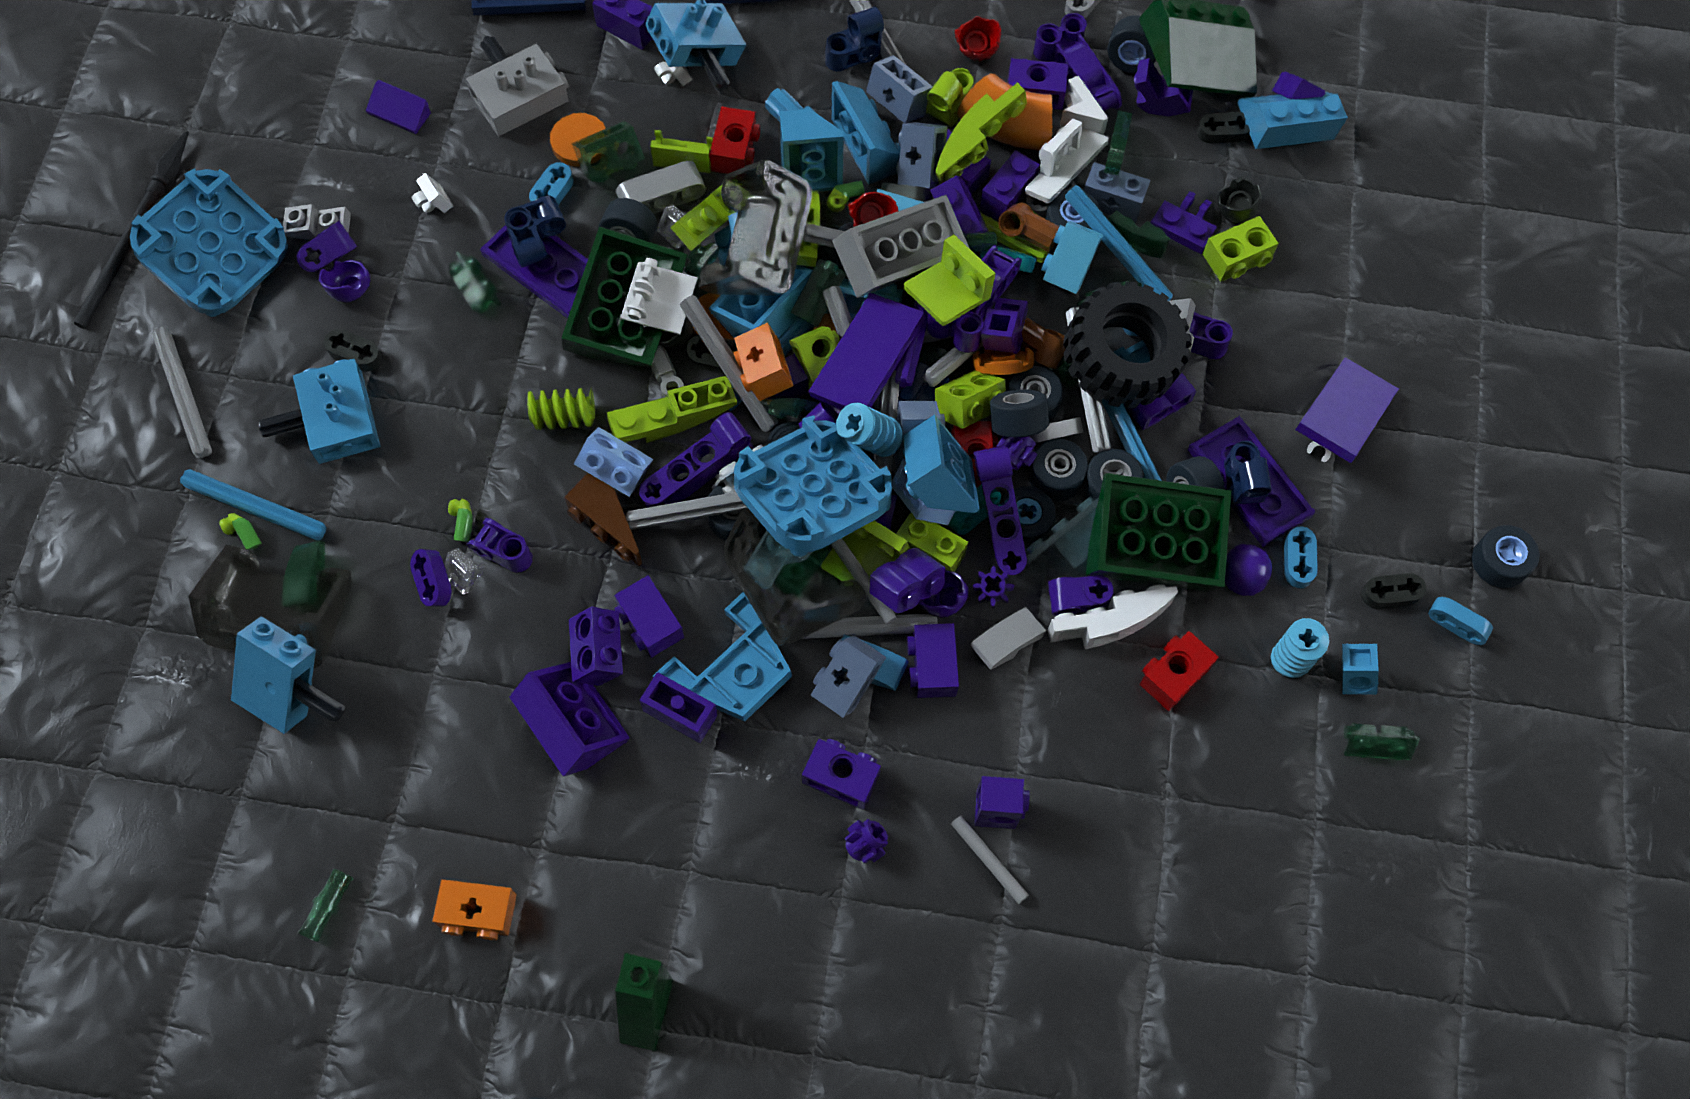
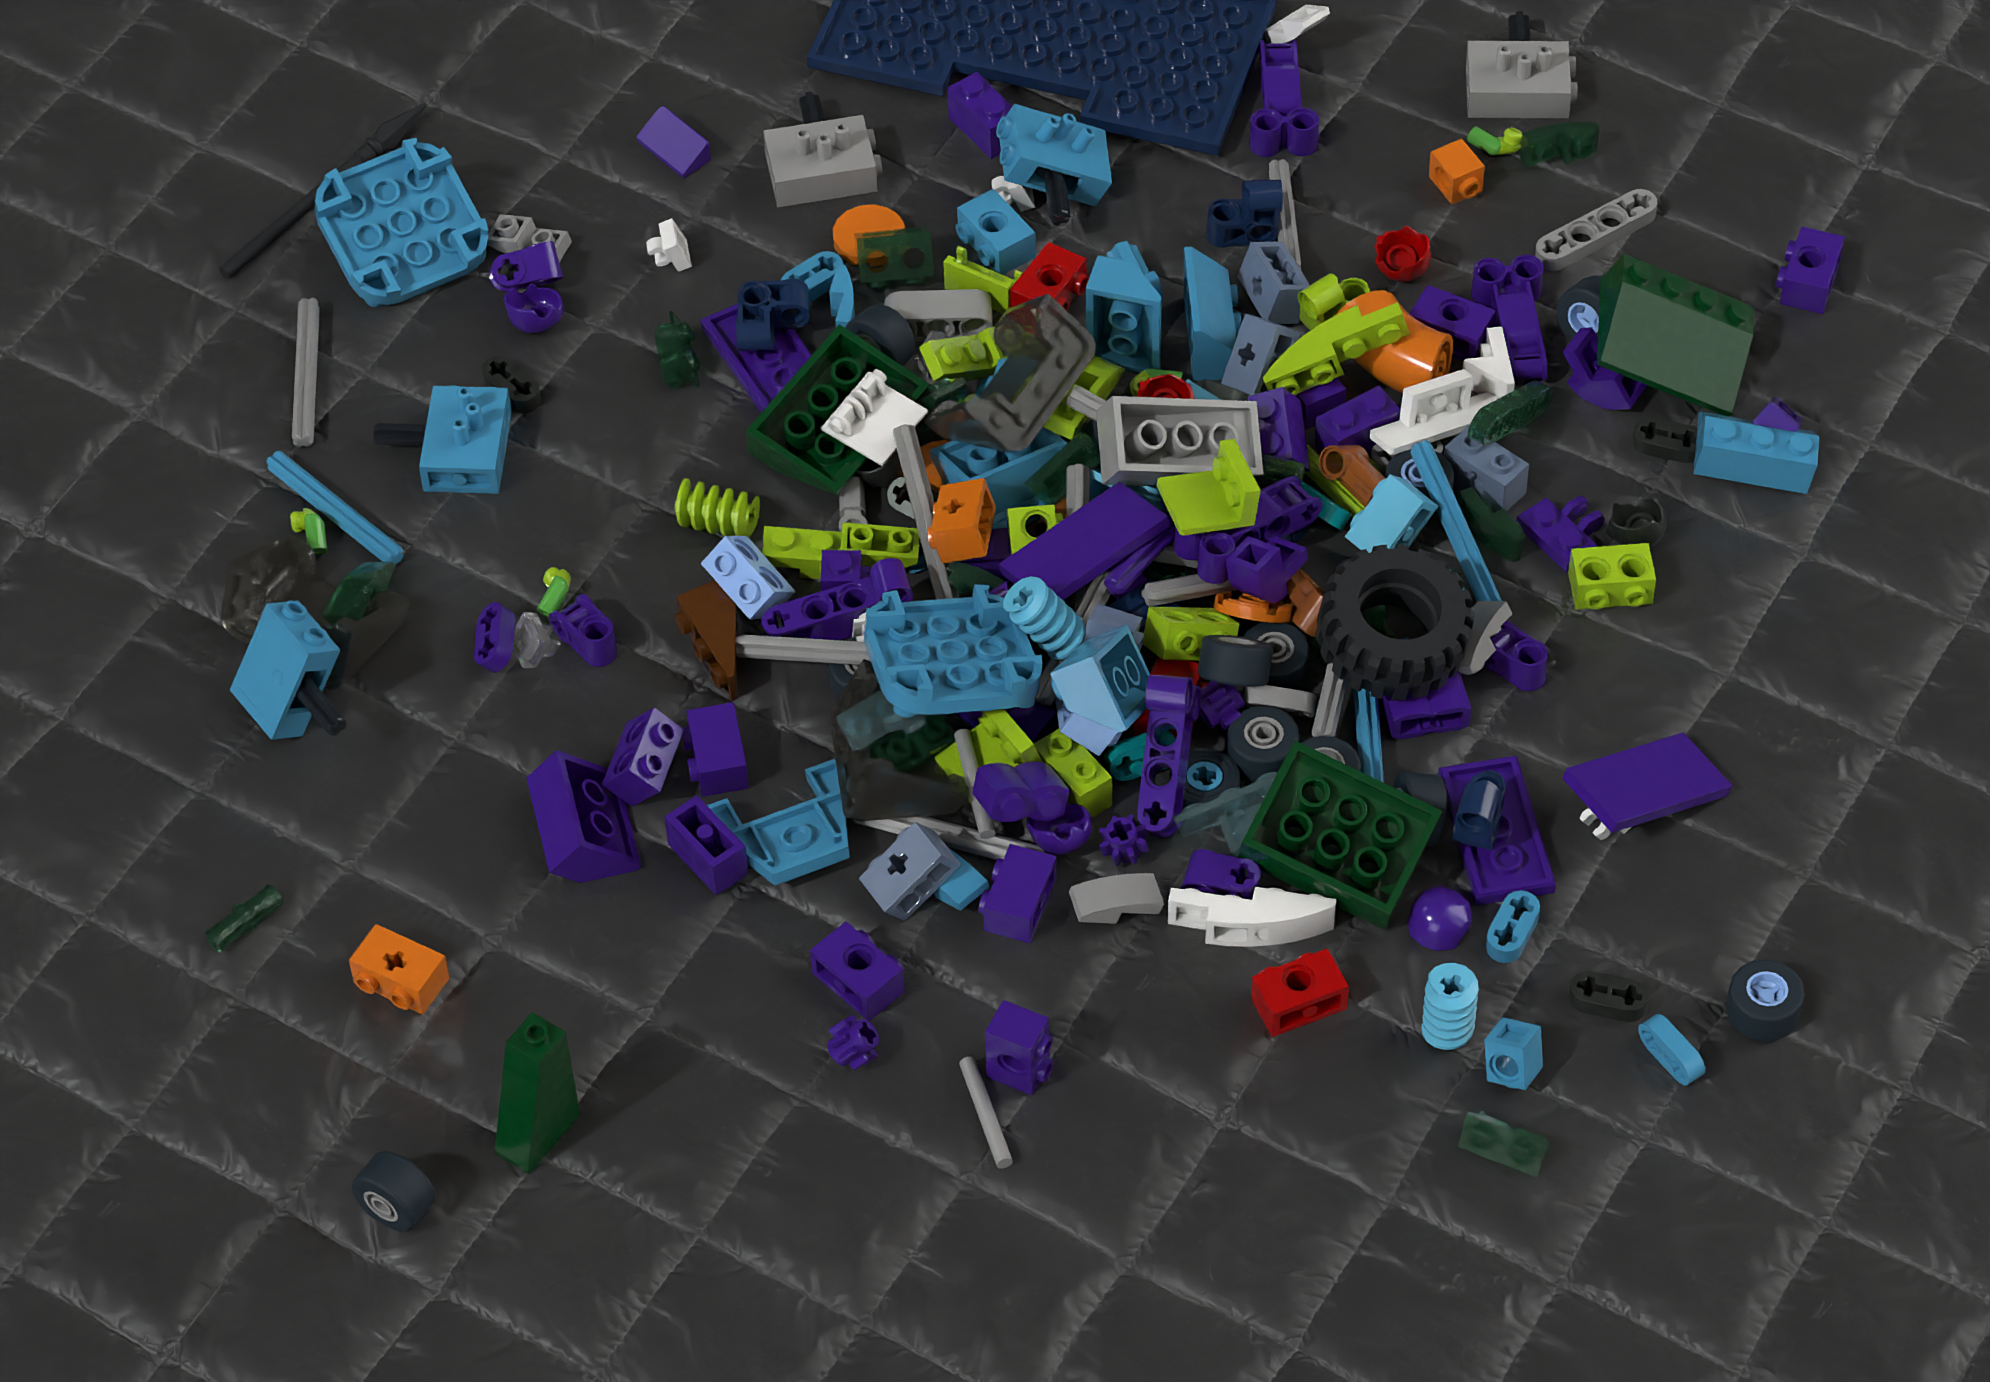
camera: 25 degrees right, 15 degrees down
(585, 201) = (842, 296): none -> dark azure slope
(675, 109) = (996, 232): none -> dark azure brick
(683, 432) = (841, 567): none -> dark purple brick

